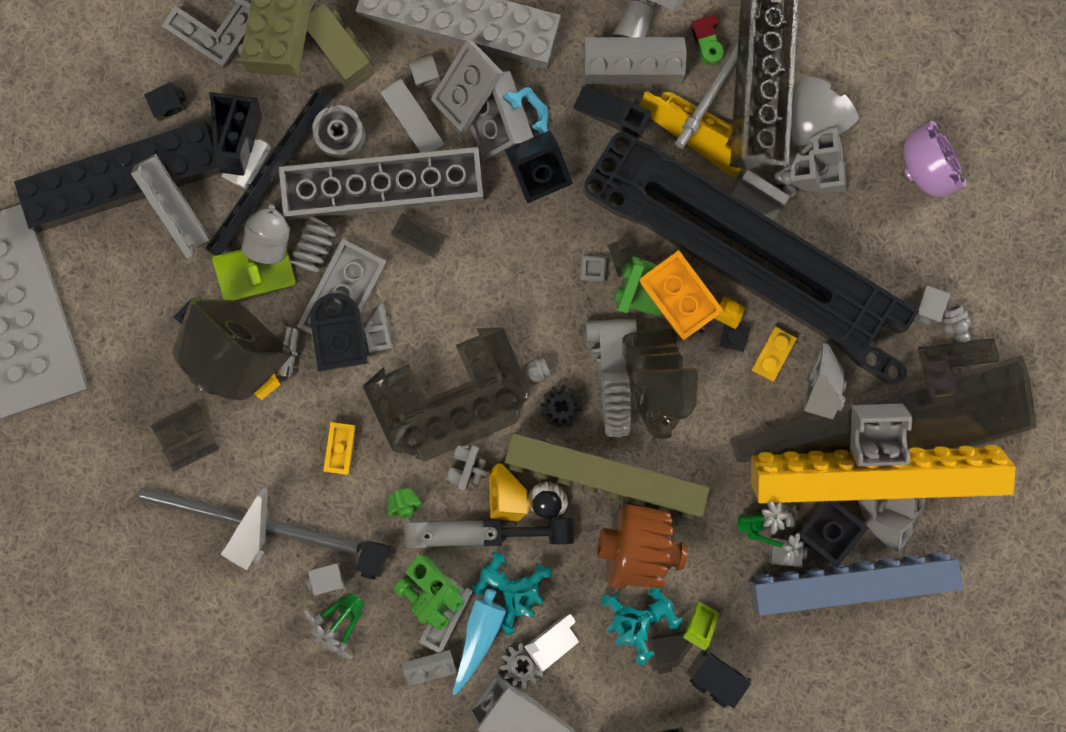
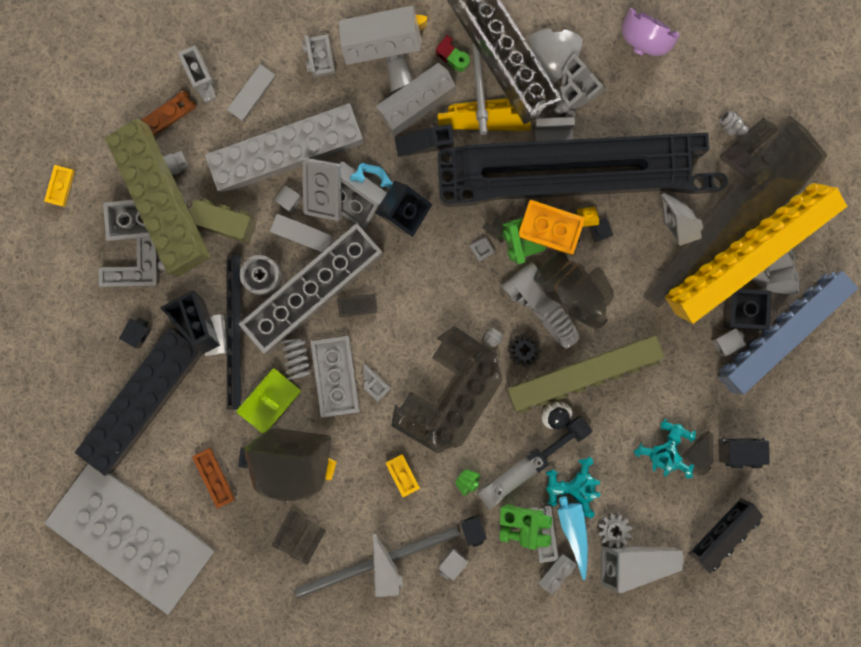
camera: 40 degrees left, 0 degrees up
(140, 311) = (213, 478): none -> dark orange plate
(169, 204) = (185, 397): light grey fence -> none
(266, 236) = (261, 374): light grey helmet -> none
(290, 340) = (322, 428): light grey axle -> none
(338, 335) = (352, 404): black tile -> none
(349, 608) = (481, 572): plant -> none
(462, 478) = (488, 422): light grey hips -> none
(507, 495) = (529, 430): yellow slope -> none
(552, 642) = (623, 502): white panel -> none
(638, 549) = (638, 406): dark orange piece -> none
(701, 625) = (709, 426): lime tile -> none
(755, 522) = (696, 338): light grey plant -> none
(773, 354) = (633, 223): yellow plate -> none
(880, 434) = (738, 227): light grey piece -> none
(931, 305) = (709, 122): light grey brick -> none

